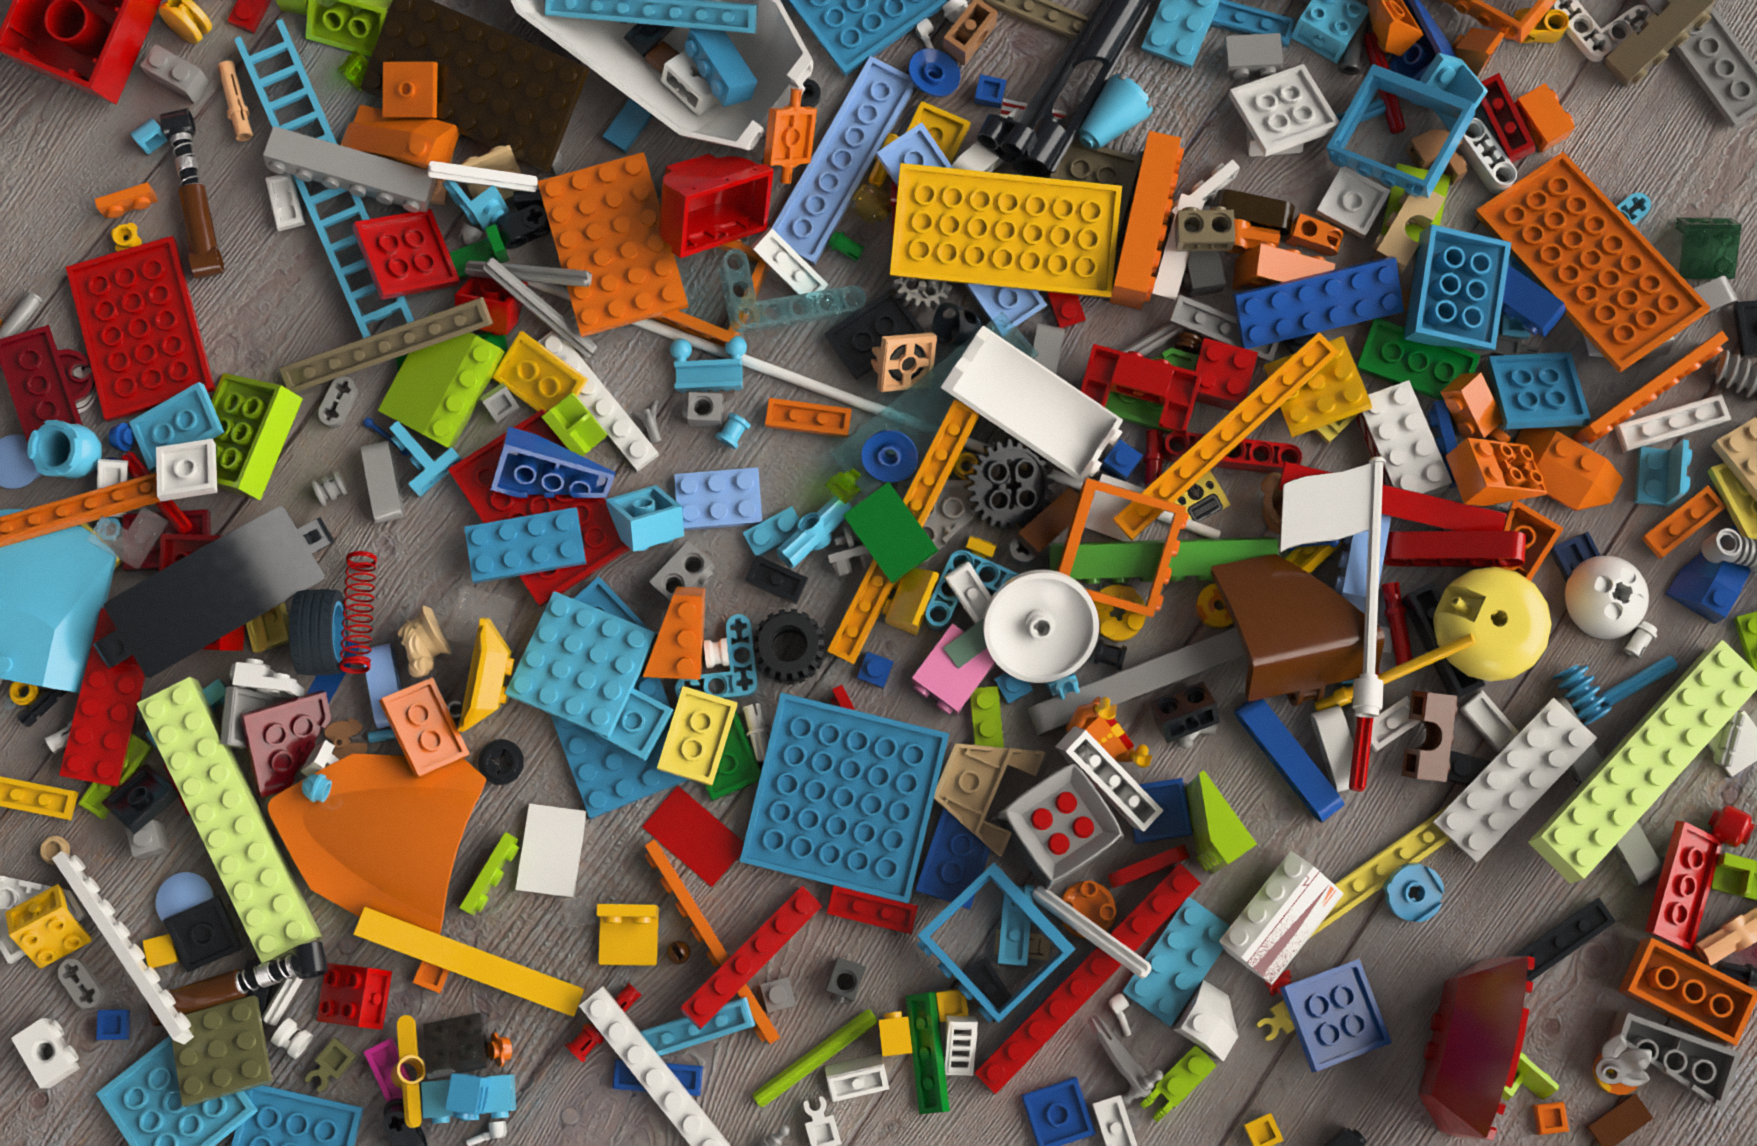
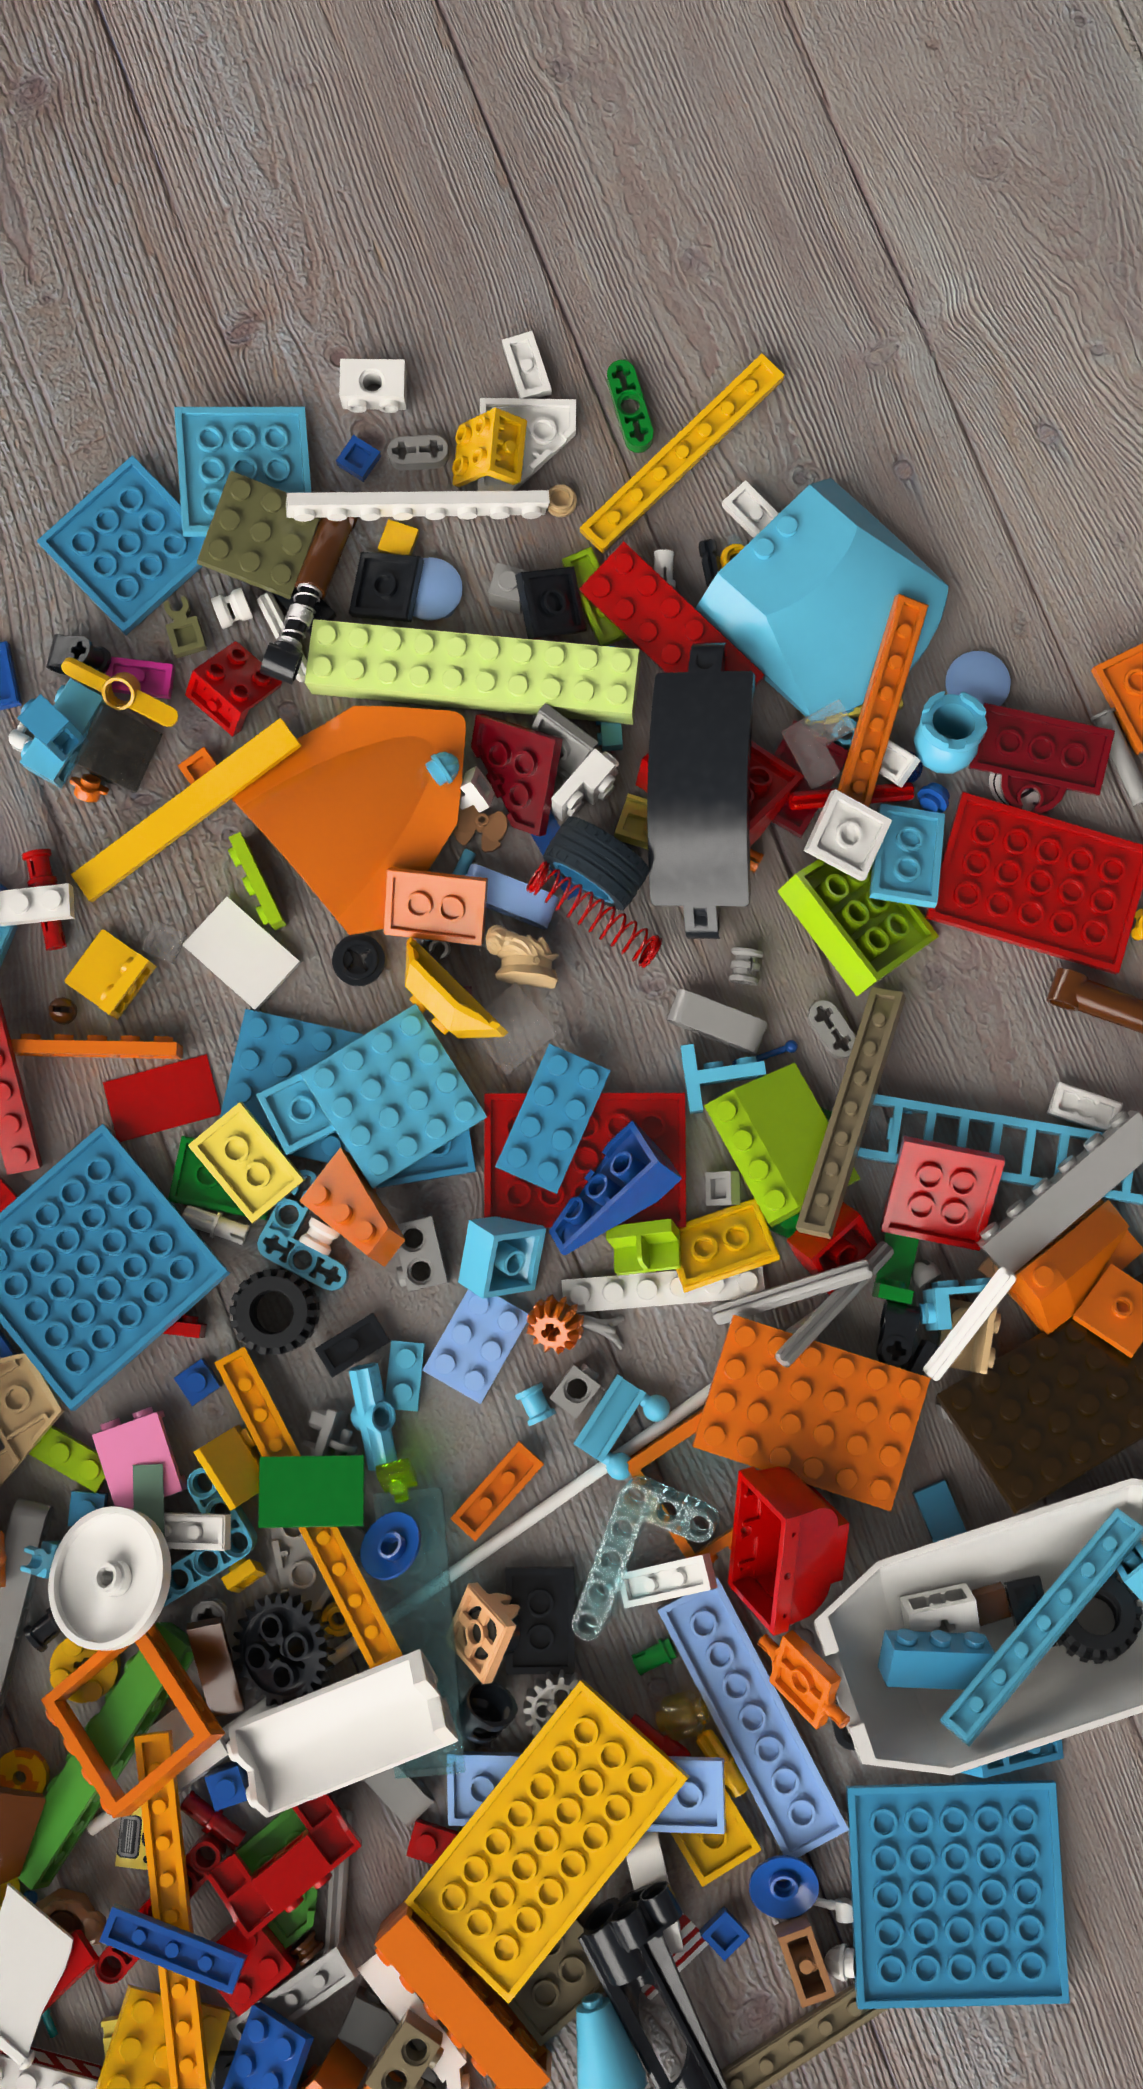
camera: 125 degrees right, 5 degrees up
(668, 451) = (555, 1324): none -> orange gear
(1241, 416) = (173, 1948): none -> blue plate

